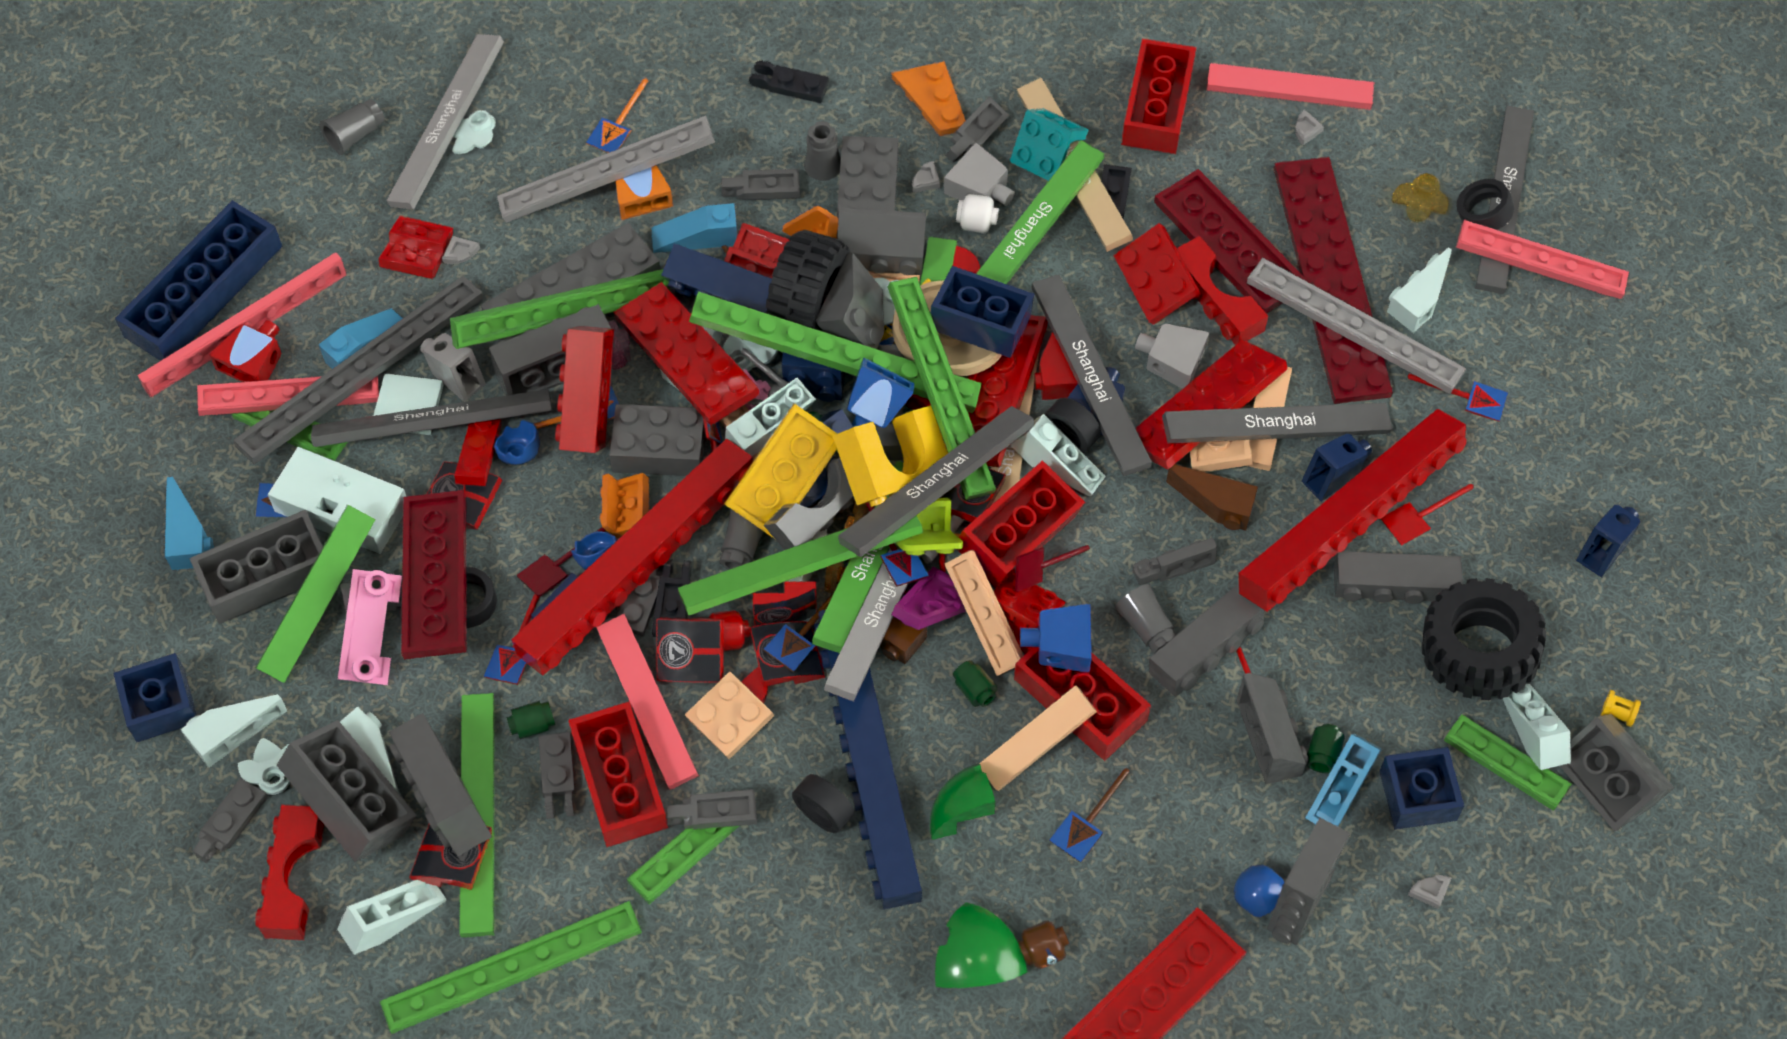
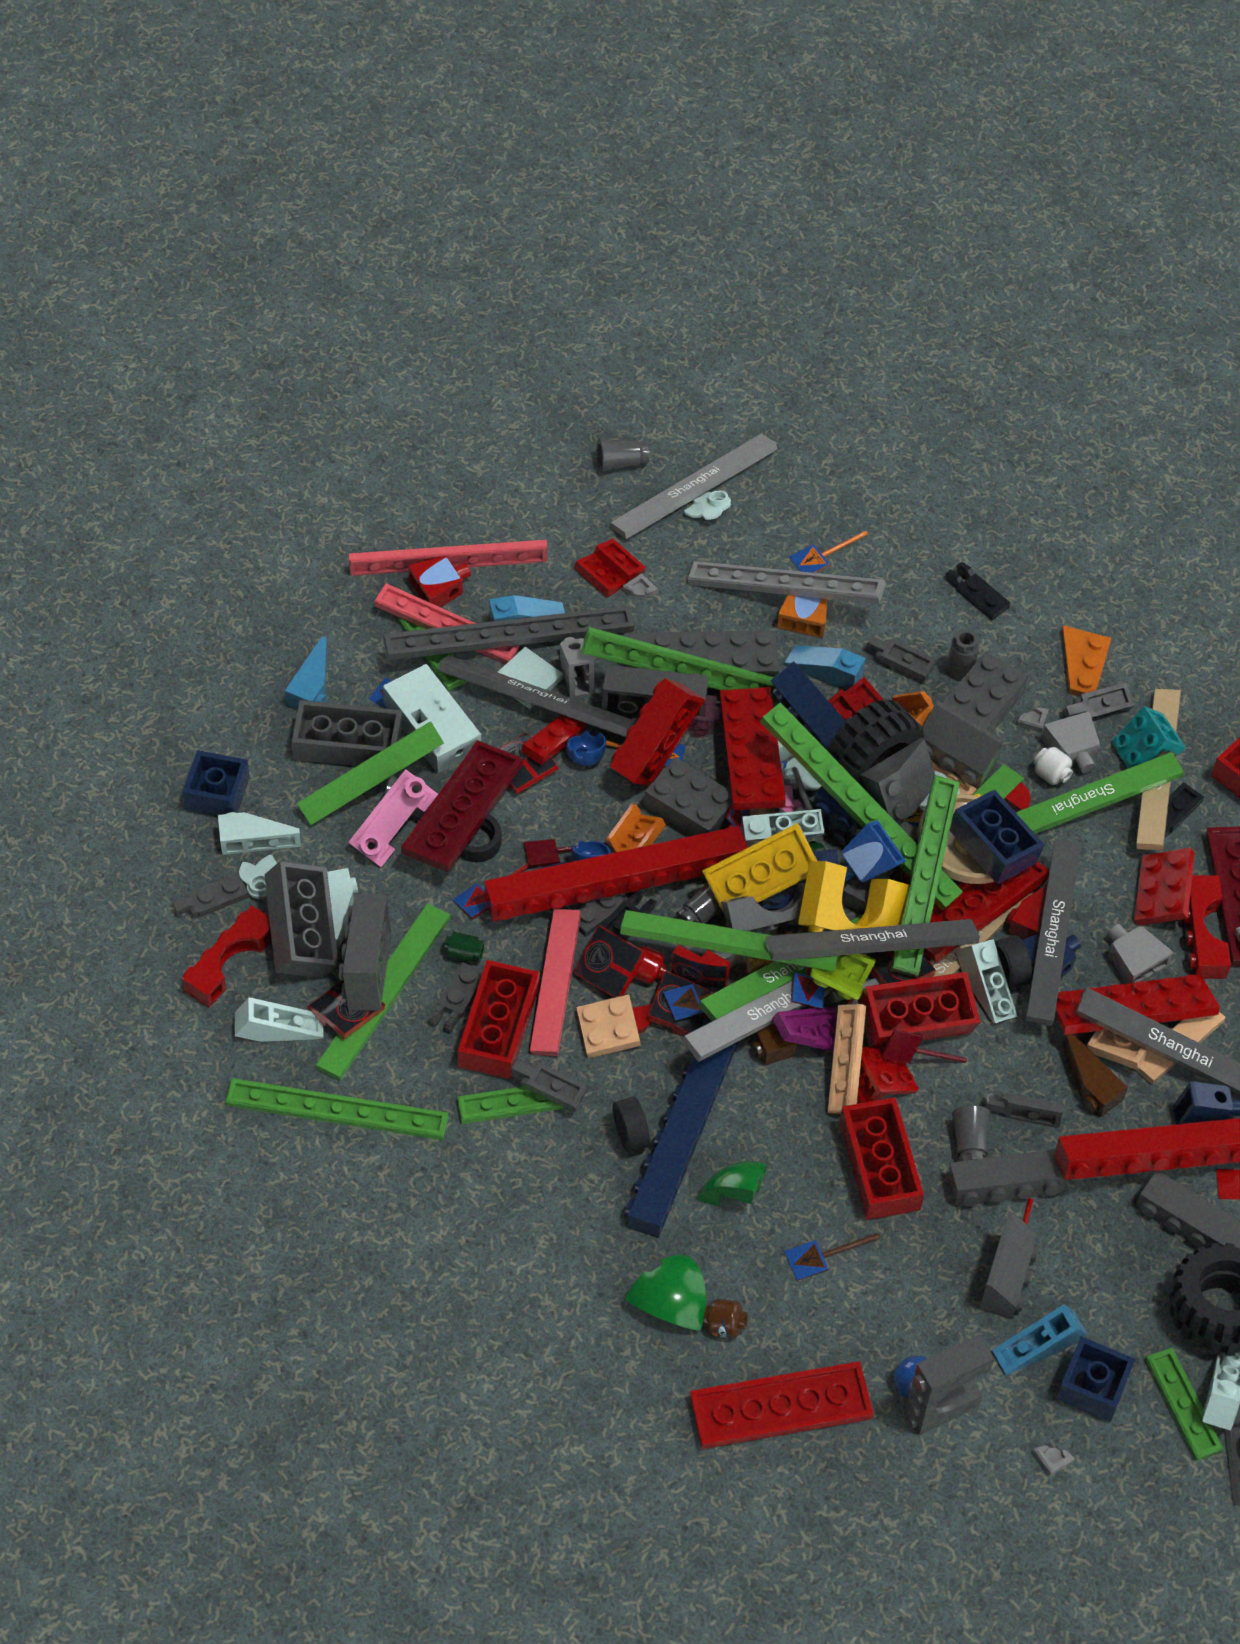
camera: 30 degrees right, 5 degrees down
(199, 281) = (436, 509): dark blue brick -> none
(975, 684) = (806, 1107): dark green brick -> none
(1037, 738) = (822, 1170): light nougat tile -> none
(1062, 637) = (888, 1106): blue torso -> none
(1325, 748) = (1041, 1305): dark green brick -> none

